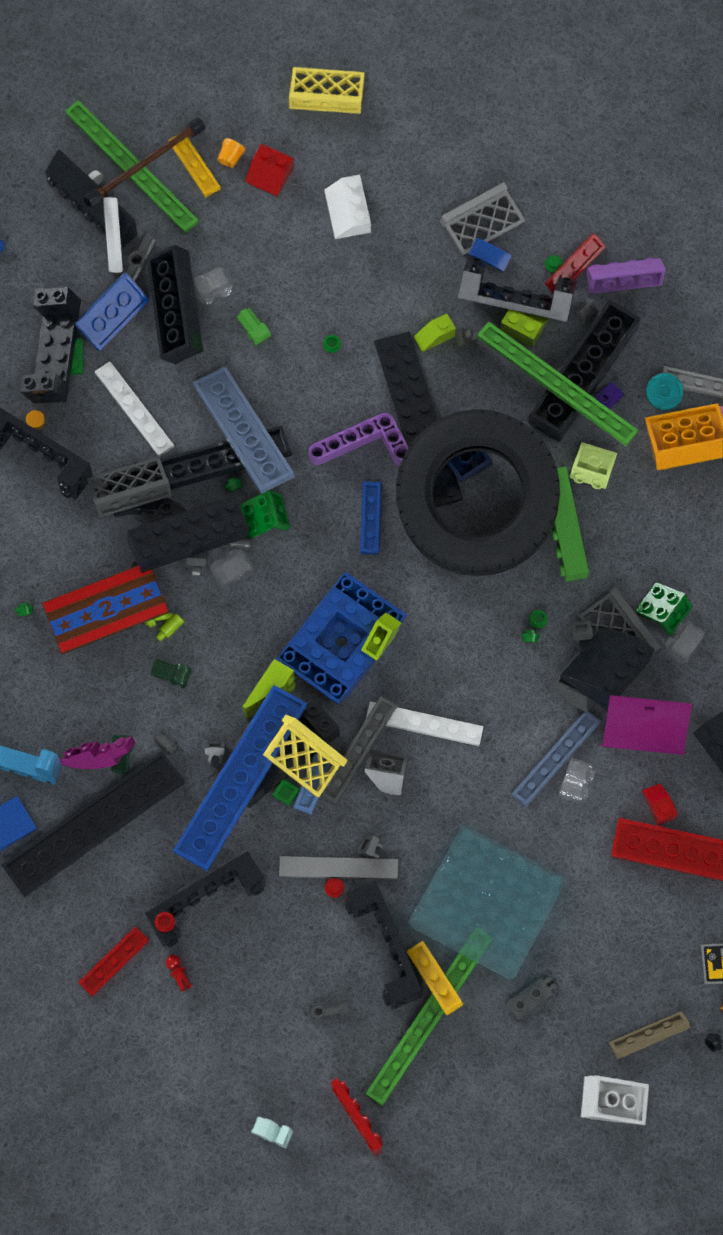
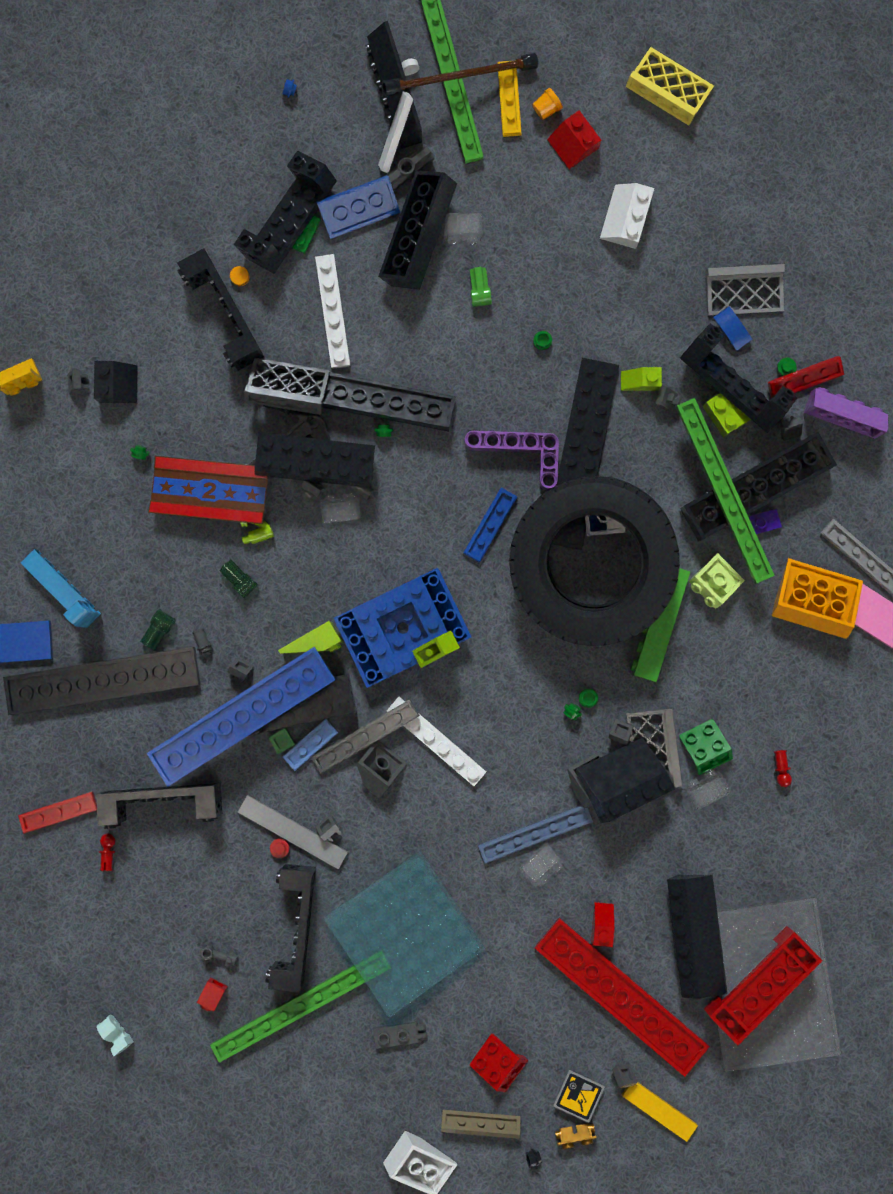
camera: 30 degrees right, 15 degrees up
(96, 756) = (131, 624): magenta slope -> none
(164, 922) = (107, 813): red plate -> none
(243, 430) = (416, 385): sand blue plate -> none
(265, 513) = (397, 473): green bracket -> none
(310, 740) = (321, 717): light yellow fence -> none
(342, 1048) = (211, 994): none -> red brick
(353, 1110) = (190, 1070): red plate -> none
(435, 978) = (321, 978): yellow plate -> none
(635, 973) = (498, 1063): none -> red bracket
(646, 725) = (629, 854): magenta piece -> none
(664, 391) = (820, 544): teal tile -> none

